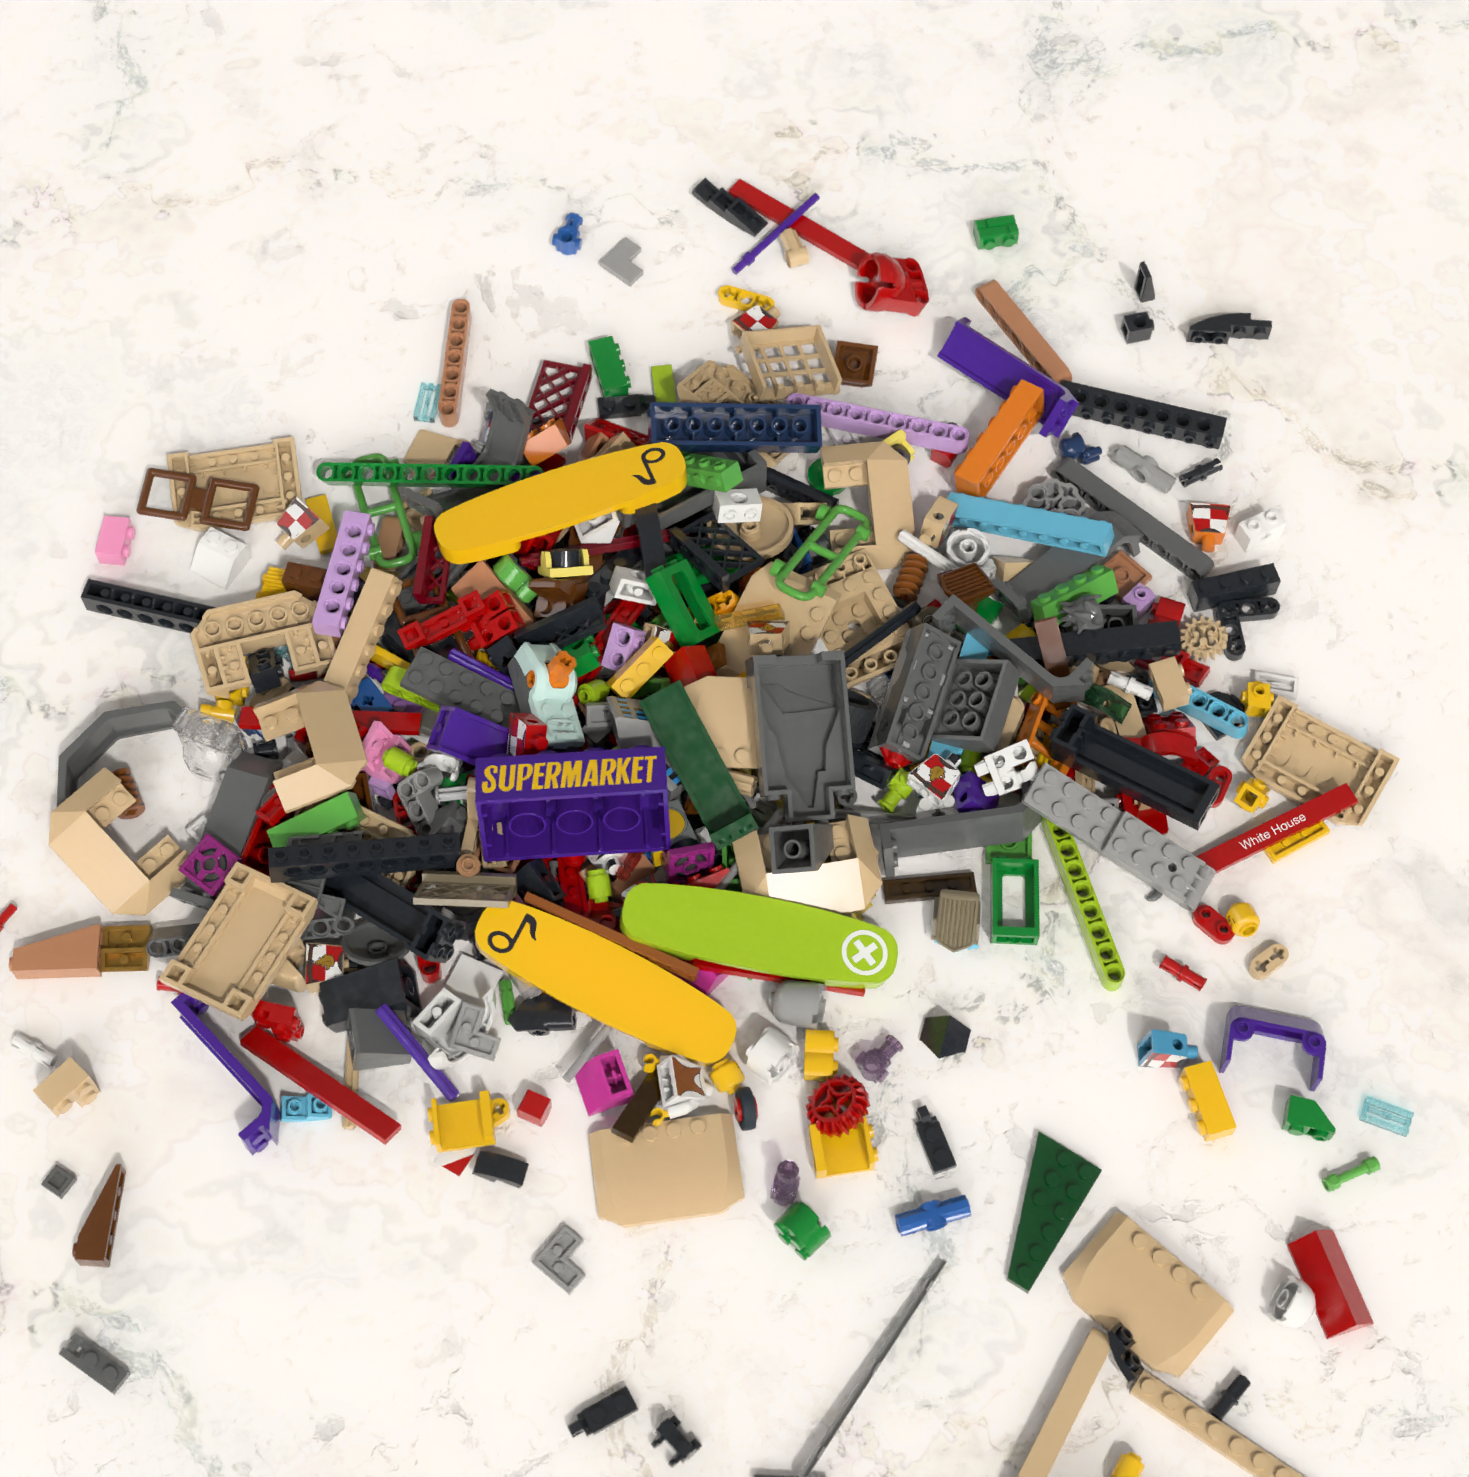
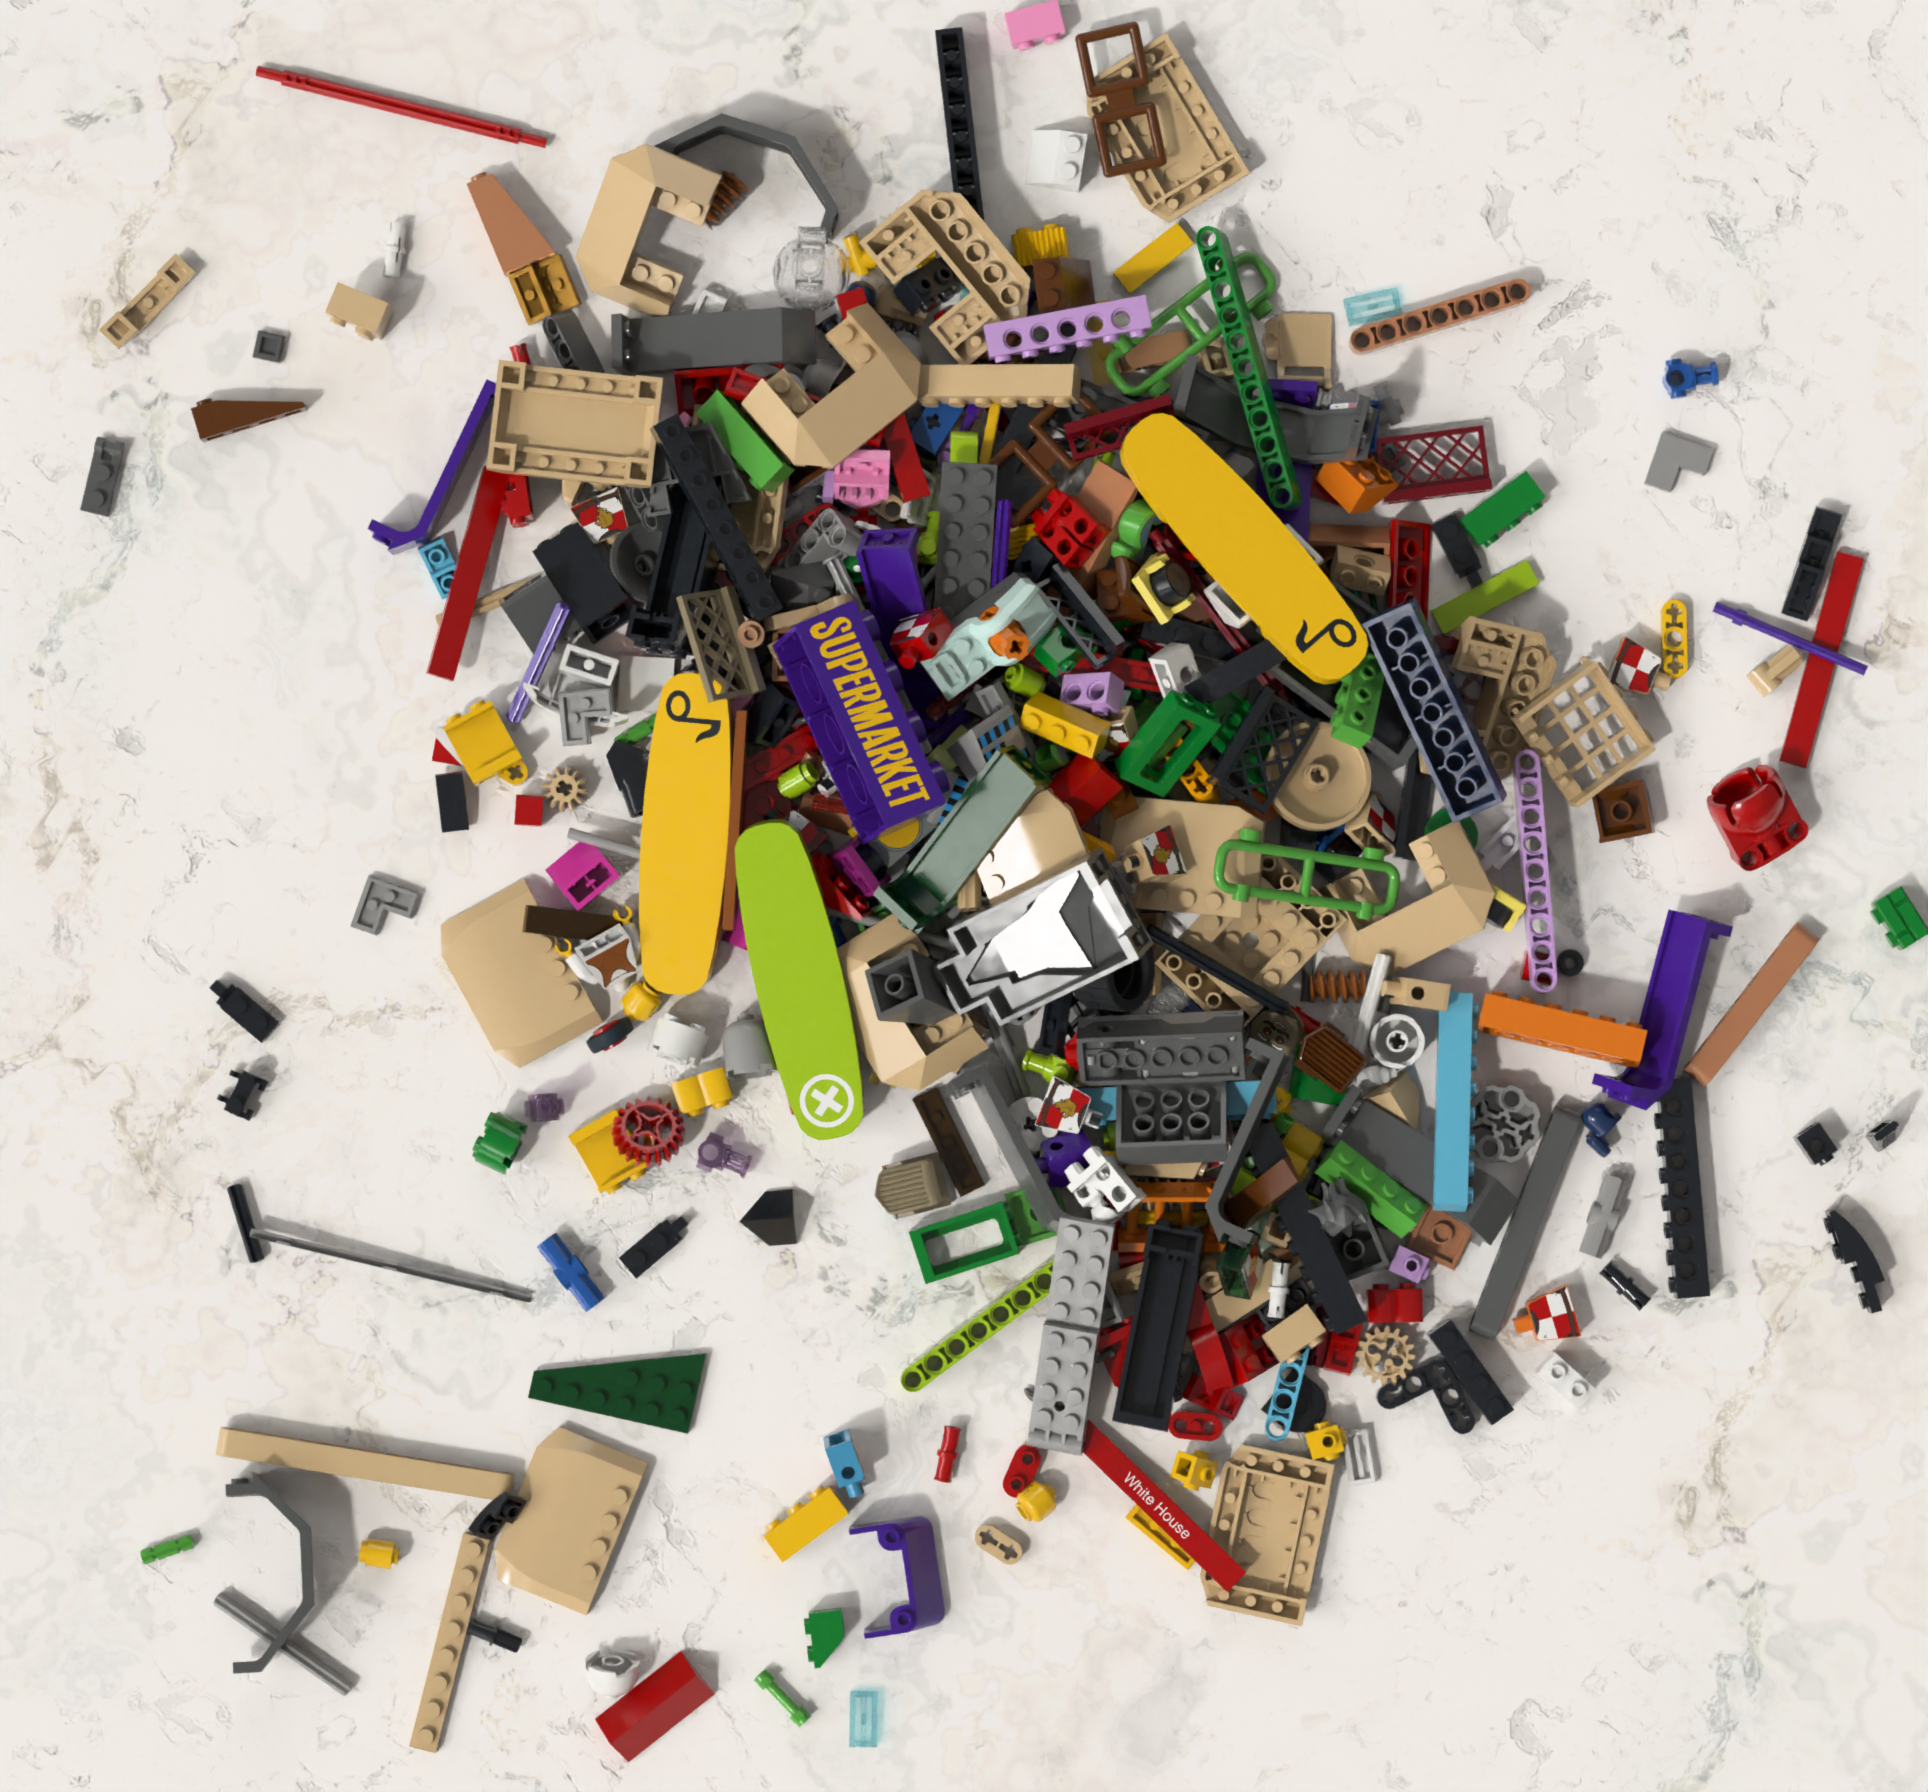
camera: 70 degrees right, 25 degrees up
(209, 866) = (660, 346): magenta piece -> none
(300, 525) = (1135, 235): torso -> none
(399, 762) = (852, 500): lime brick -> none
(443, 624) = (1039, 474): red slope -> none
(521, 1070) = (560, 797): none -> tan gear
(737, 506) = (1345, 760): white brick -> none
(739, 618) = (1178, 826): clear yellow tile -> none

